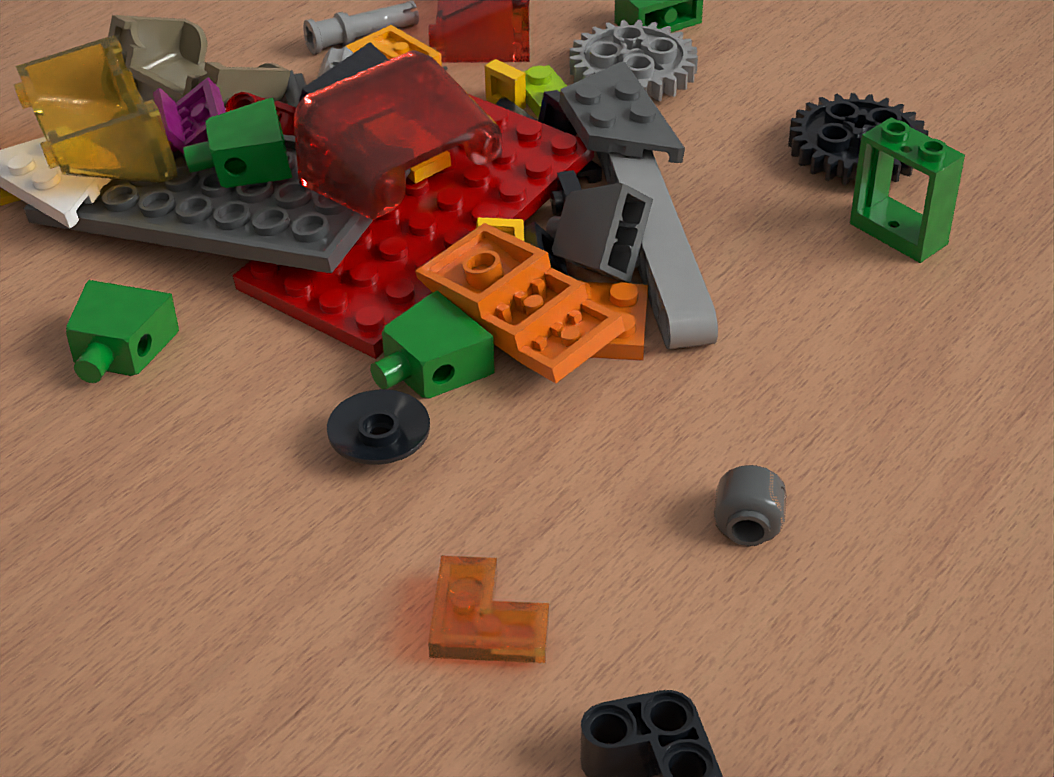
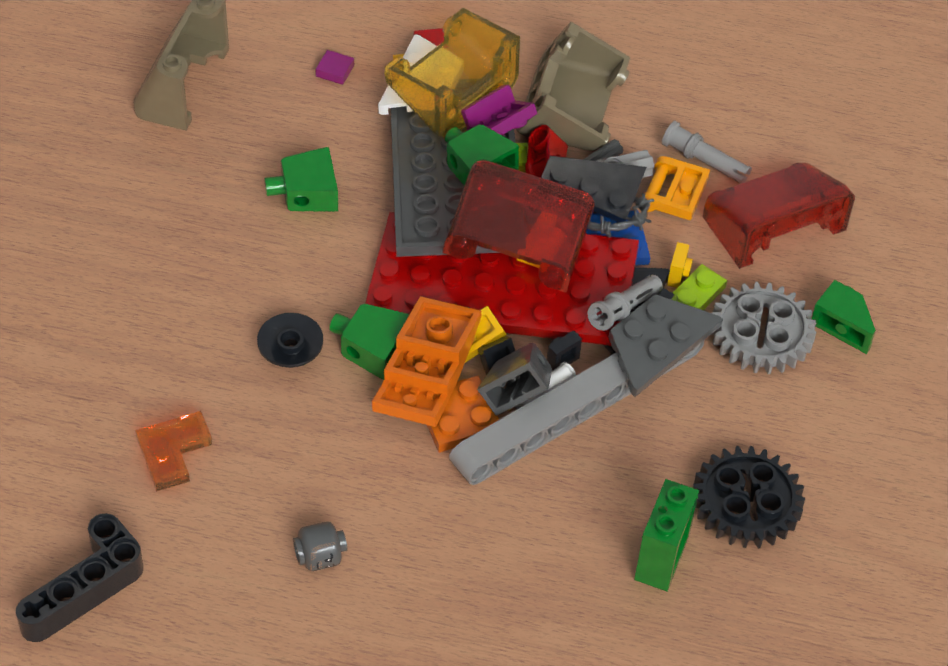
camera: 60 degrees right, 10 degrees up
(559, 116) = (618, 305): none -> light grey pin

